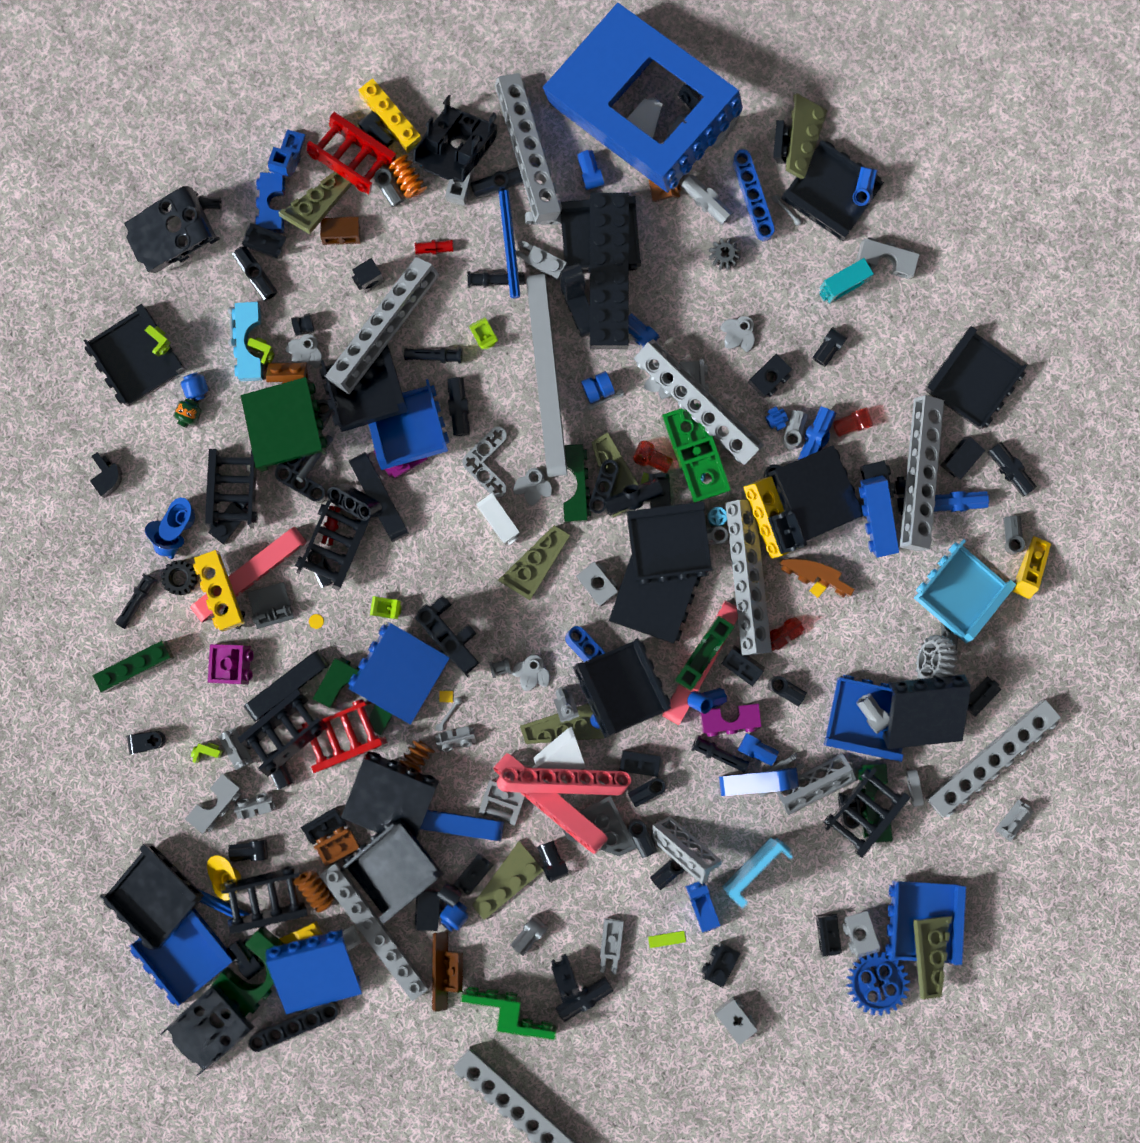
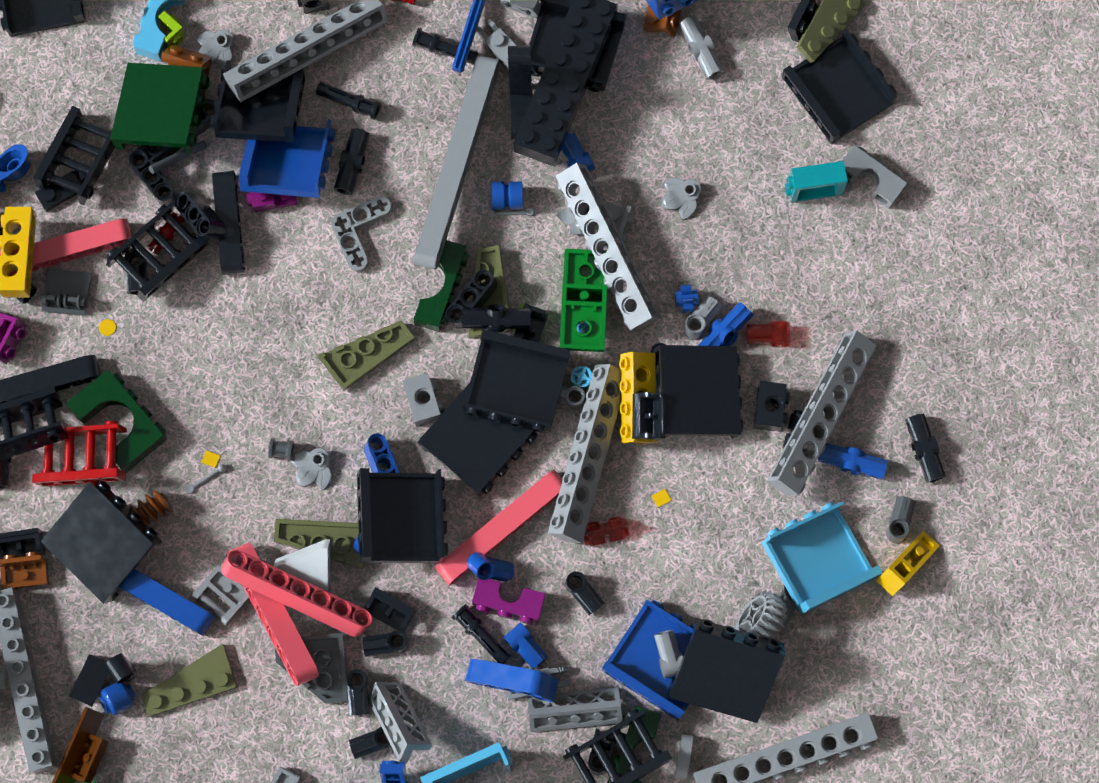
camera: 25 degrees right, 10 degrees down
(187, 413) = (67, 64): dark green head -> none
(194, 386) = (86, 40): blue head -> none
(302, 324) = (225, 19): black wheel -> none
(385, 607) = (185, 339): lime bracket -> none
(393, 869) = (71, 617): panel -> none
(398, 672) = (168, 409): blue panel -> none
(447, 742) = (191, 506): light grey hinge -> none
(452, 644) = (234, 392): black piece -> none
(473, 874) = (157, 660): black hinge -> none
(483, 333) = (409, 97): lime bracket -> none
(498, 519) = (343, 290): white slope -> none
(531, 932) = (193, 750): flat silver piece -> none
(533, 489) = (394, 275): light grey plate -> none
(554, 866) = (249, 685): black piece -> none
(565, 705) = (334, 515): light grey hinge -> none
(647, 455) = (531, 283): clear red piece -> none
(704, 653) = (495, 521): dark green arch -> none
(717, 251) = (695, 116): dark grey gear -> none
(743, 665) = (545, 547): black hinge -> none
(753, 186) = (752, 51): blue beam -> none
(776, 198) = (776, 74): light grey hinge -> none
(776, 366) = (705, 242): black brick -> none
(810, 570) = (661, 473): dark orange slope -> none
(832, 342) = (775, 244): black piece -> none
(866, 184) = (876, 90): blue piece -> none
(879, 516) = (757, 441): blue brick -> none
(962, 457) = (875, 415): black hinge -> none
(975, 379) = (920, 337): black panel -> none
(982, 695) = (798, 683): black hinge -> none

